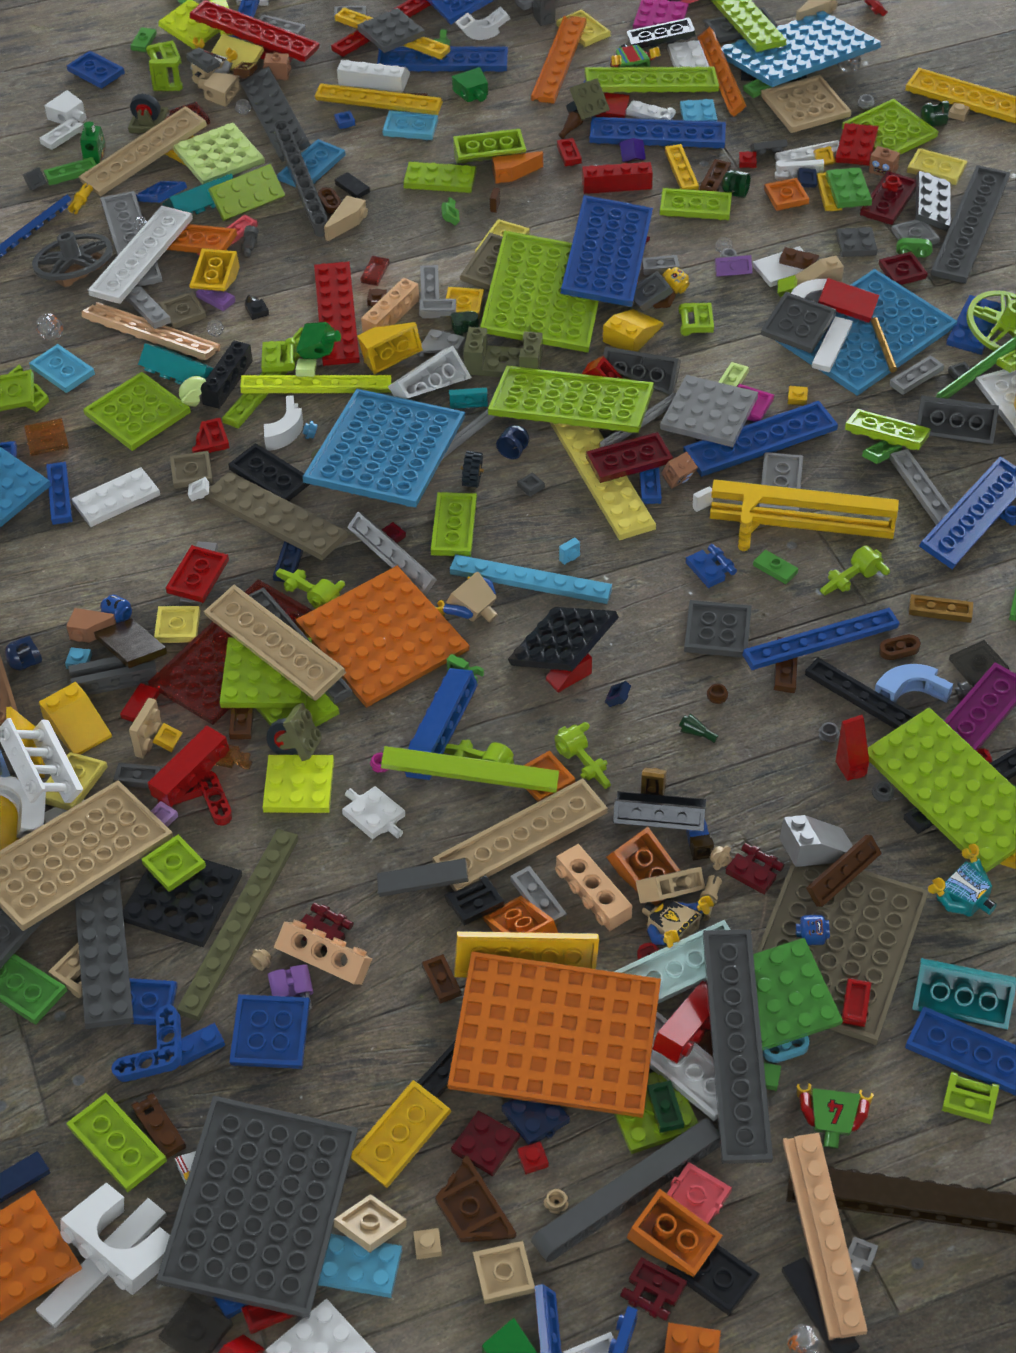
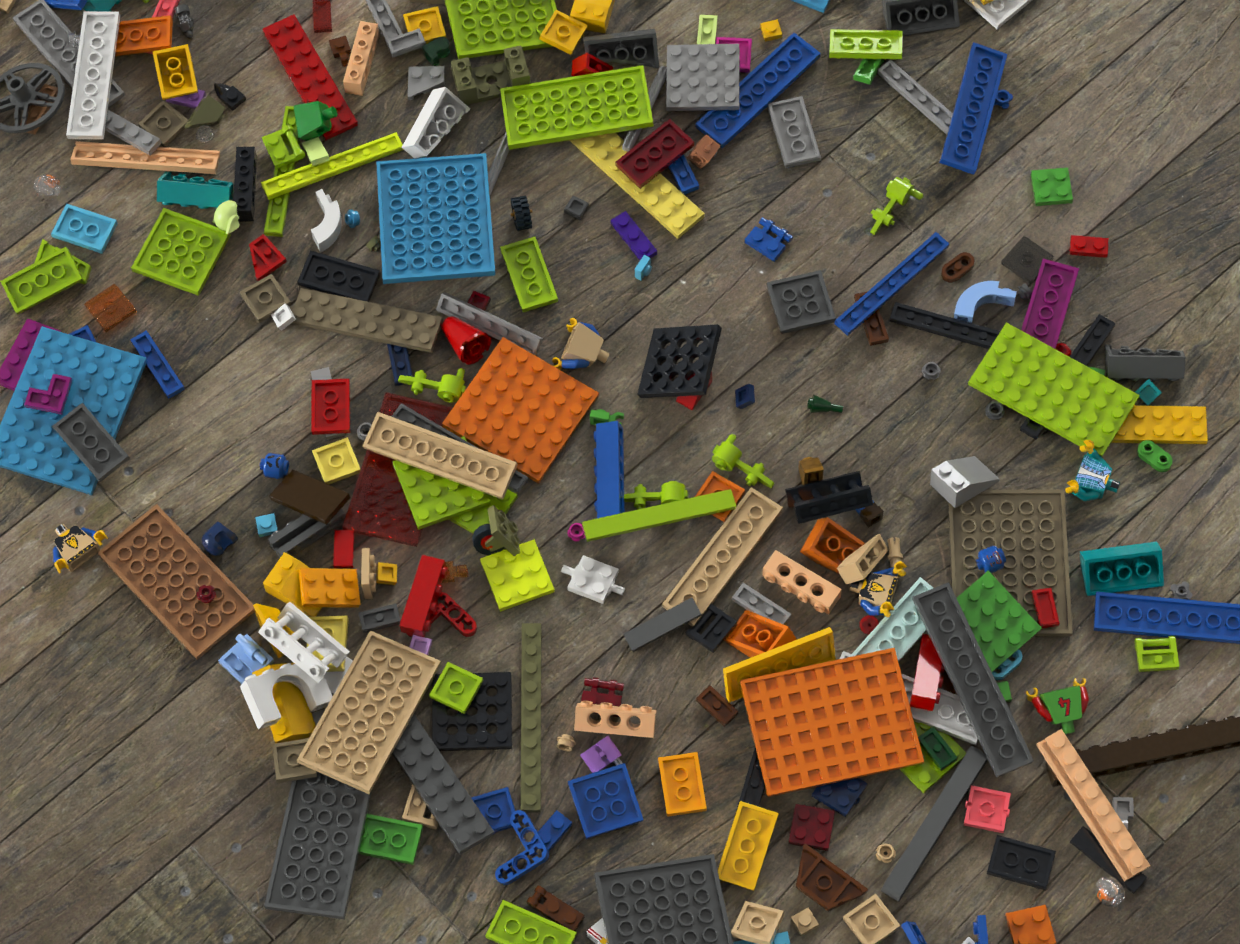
camera: 20 degrees left, 15 degrees up
(85, 622) = (258, 489): nougat slope -> none
(100, 730) = (329, 587): none -> light orange plate
(115, 497) = (210, 349): white plate -> none
(225, 310) = (206, 113): none -> olive slope
(241, 723) = (441, 537): reddish brown plate -> none
(361, 559) = (466, 339): none -> red cone
(362, 1045) = (682, 784): none -> light orange plate
(389, 345) = (382, 104): yellow slope -> none
(468, 398) = (476, 136): teal plate -> none
(512, 437) = (542, 163): dark blue helmet -> none
(532, 579) = (620, 306): medium azure plate -> none
(532, 1157) = (852, 825): red plate -> none
(575, 522) = (633, 236): none -> dark purple plate
(590, 337) = (563, 32): none -> yellow plate
(657, 1282) = (985, 886): dark red plate -> none
(674, 1234) = (984, 846): orange slope -> none
(702, 499) = (734, 173): white tile -> none
(717, 693) = (826, 366): reddish brown plate -> none
(720, 857) = (890, 518): tan plate -> none
(751, 516) = (823, 158): yellow piece -> none
(751, 873) = (917, 522): dark red plate -> none
(775, 566) = (823, 221): bright green plate -> none
(843, 870) = (994, 498): reddish brown plate -> none
(852, 748) = (960, 385): red slope -> none
(941, 608) = (977, 216): pearl gold plate -> none

